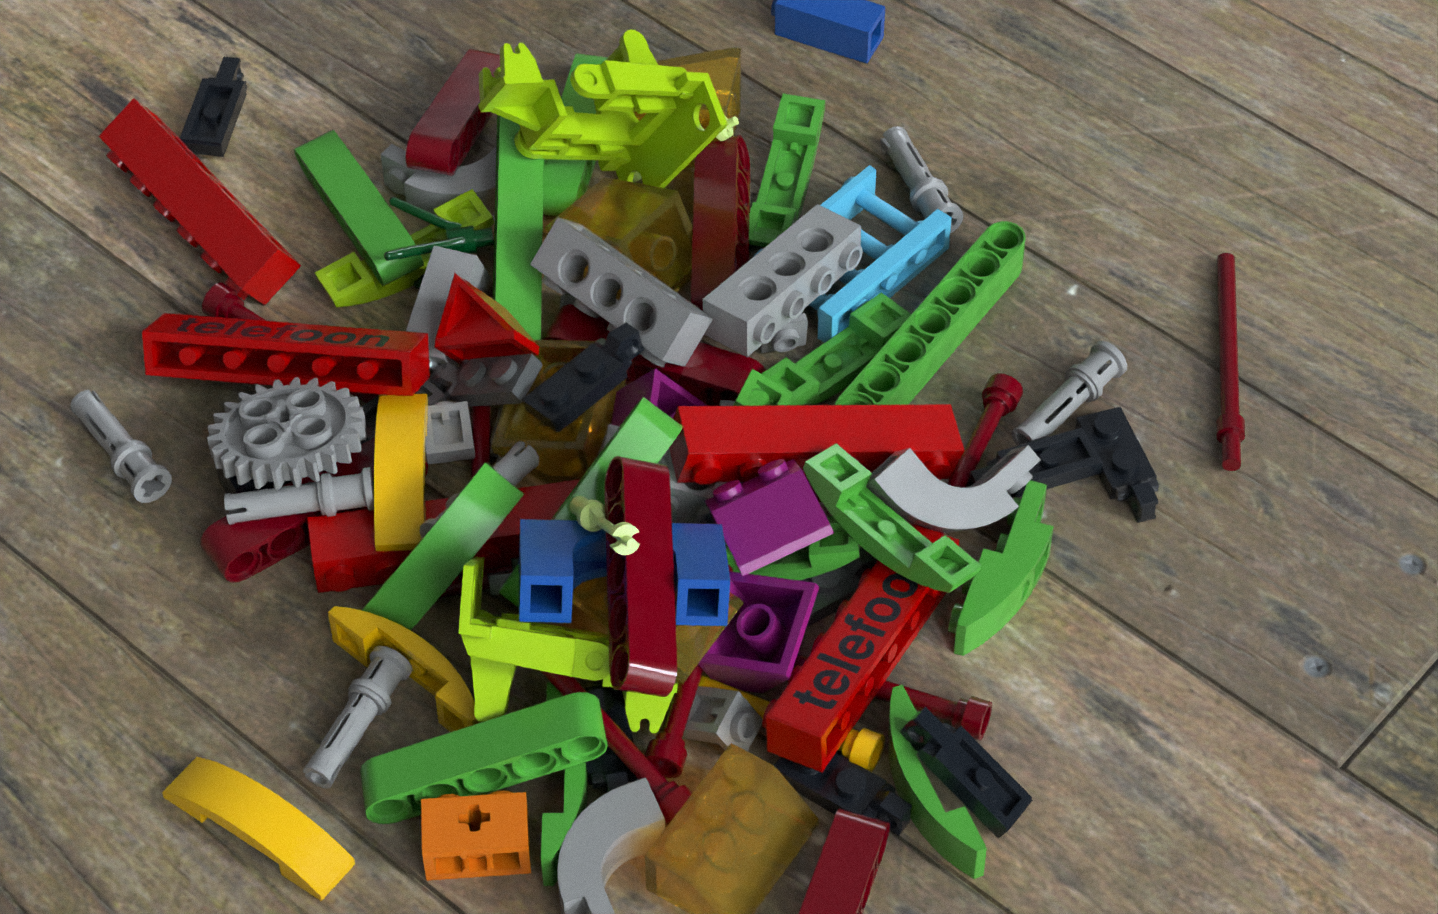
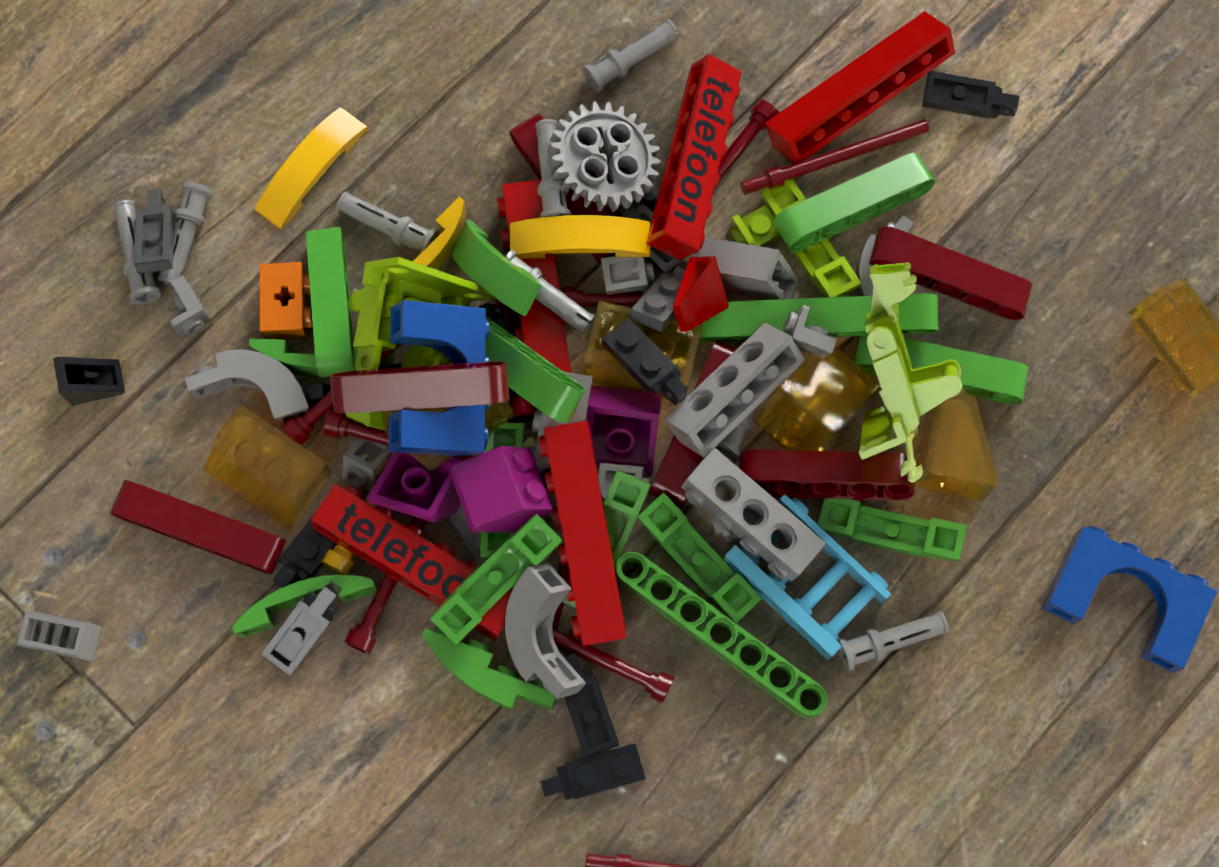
camera: 90 degrees right, 25 degrees up
(316, 276) = (776, 176): none -> dark red bar
(384, 309) = (754, 228): none -> lime bracket
(458, 238) = (805, 273): dark green plant -> none
(534, 221) = (809, 339): none -> light grey bracket
(592, 518) = (475, 353): yellowish green piece -> none
(1082, 384) = (668, 750): light grey pin -> none

